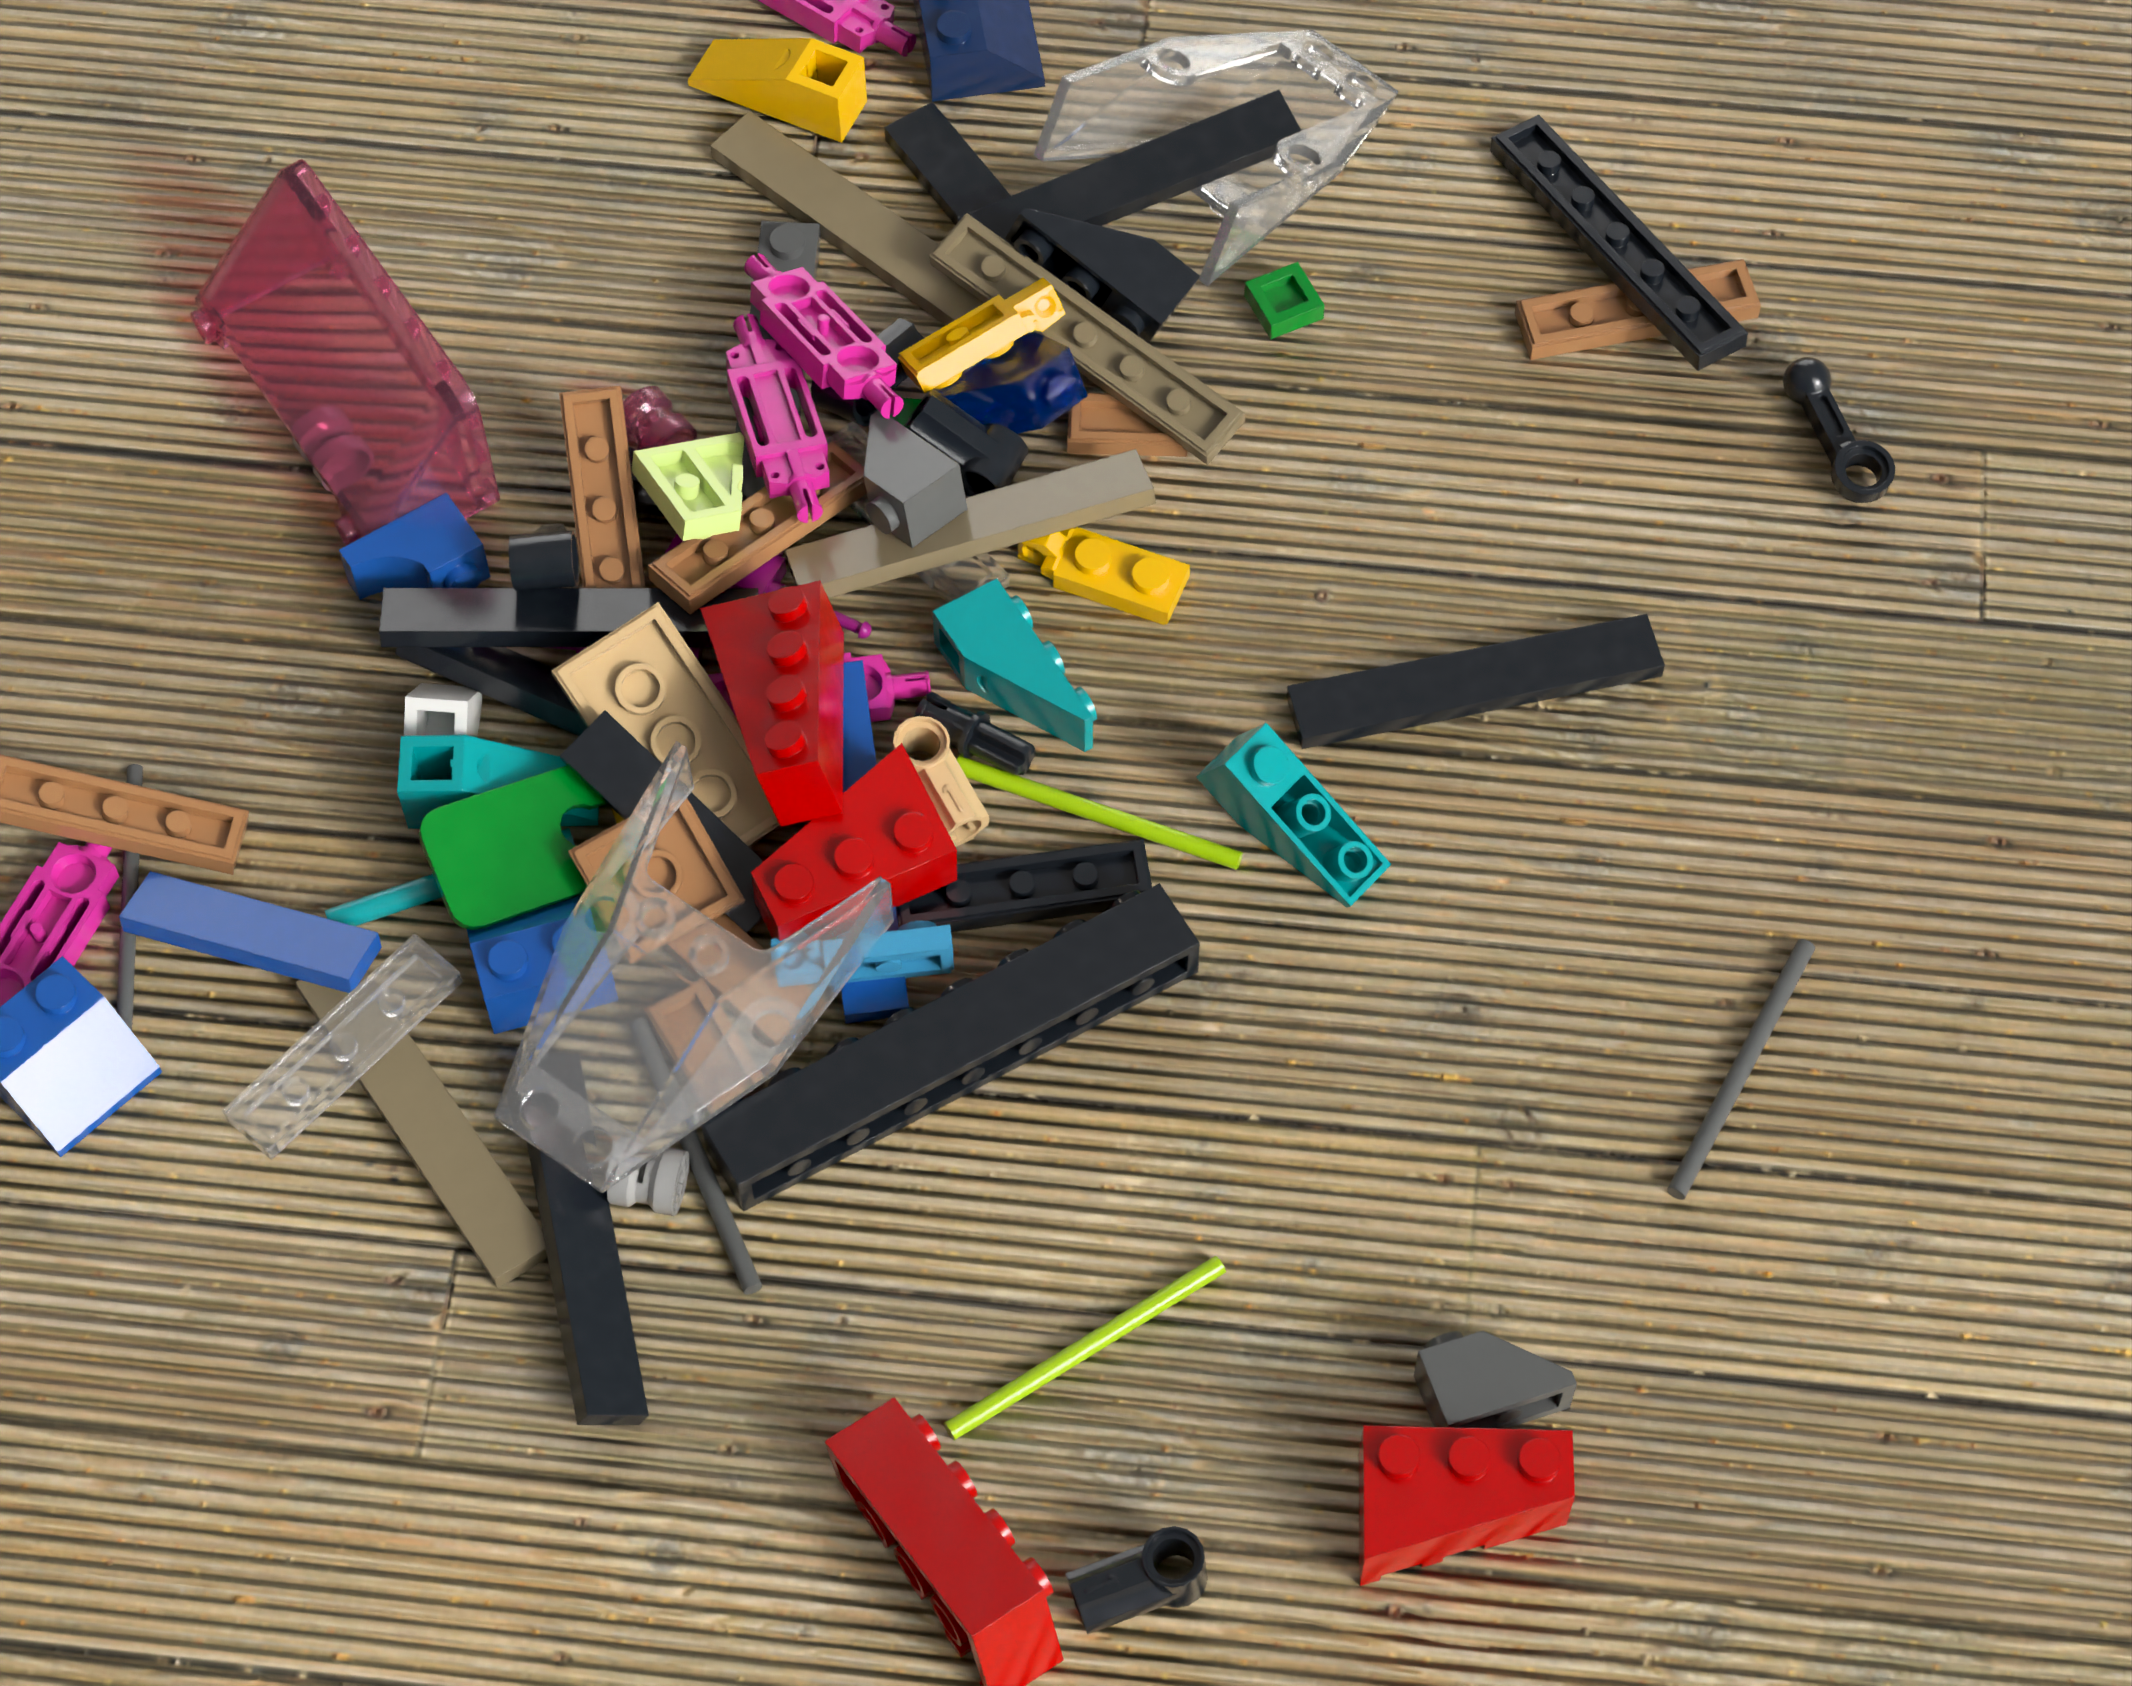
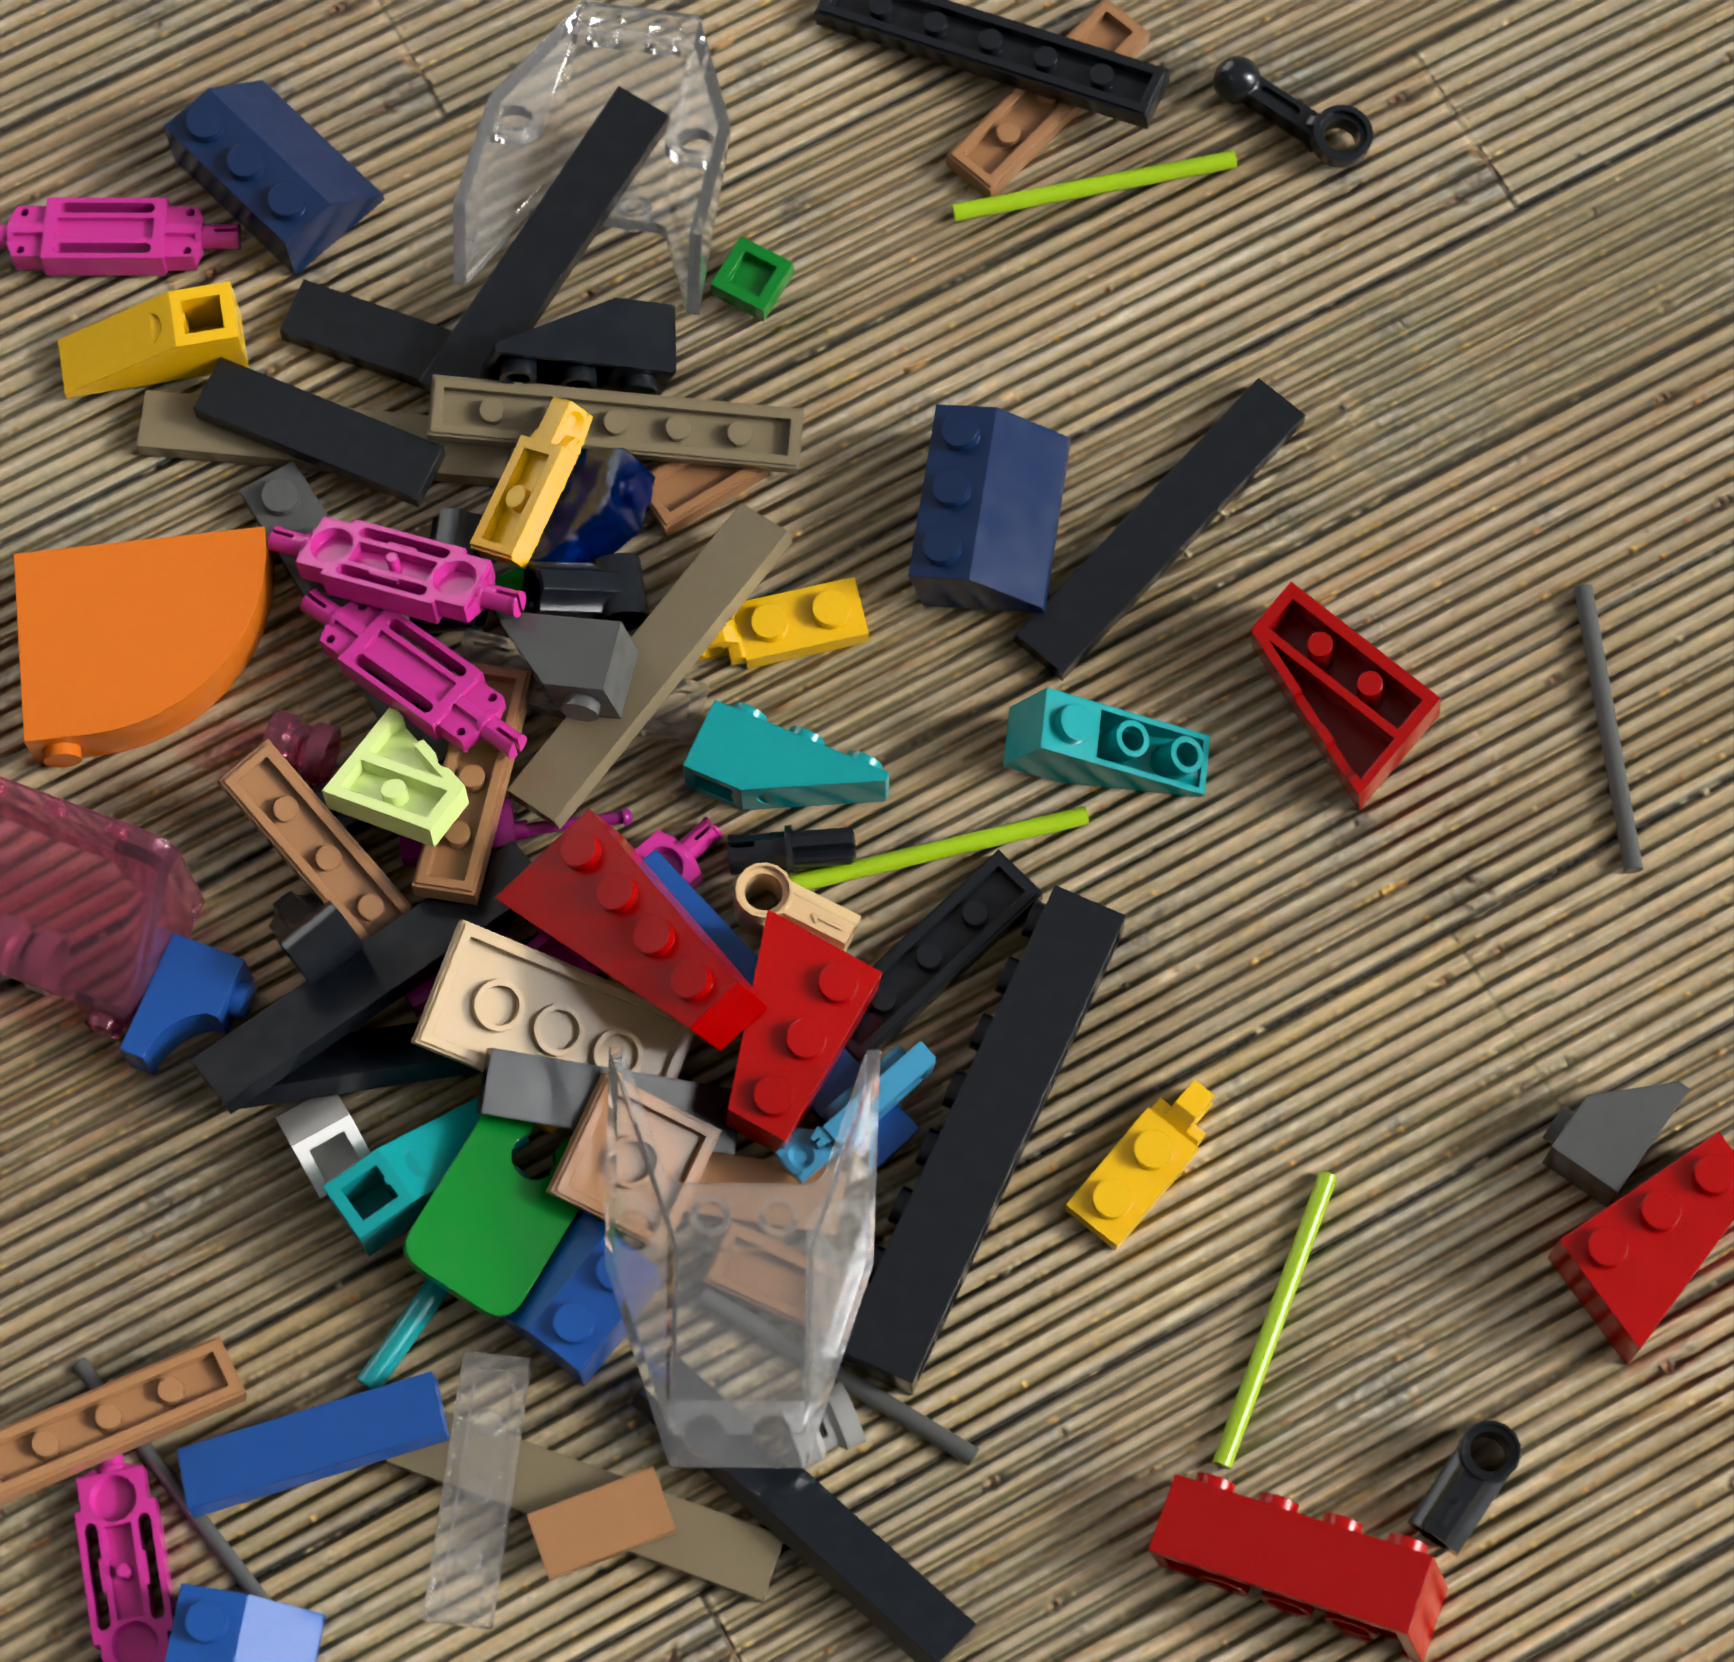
camera: 35 degrees left, 10 degrees up
(416, 1134) = (601, 1523): none -> medium nougat tile
(597, 276) = (135, 637): none -> orange brick
(853, 213) = (319, 432): none -> black tile
(1070, 1155) = (1141, 1166): none -> yellow hinge
(1334, 575) = (988, 511): none -> dark blue slope
(1524, 891) = (1343, 690): none -> red wedge
(1626, 395) = (1094, 186): none -> lime axle

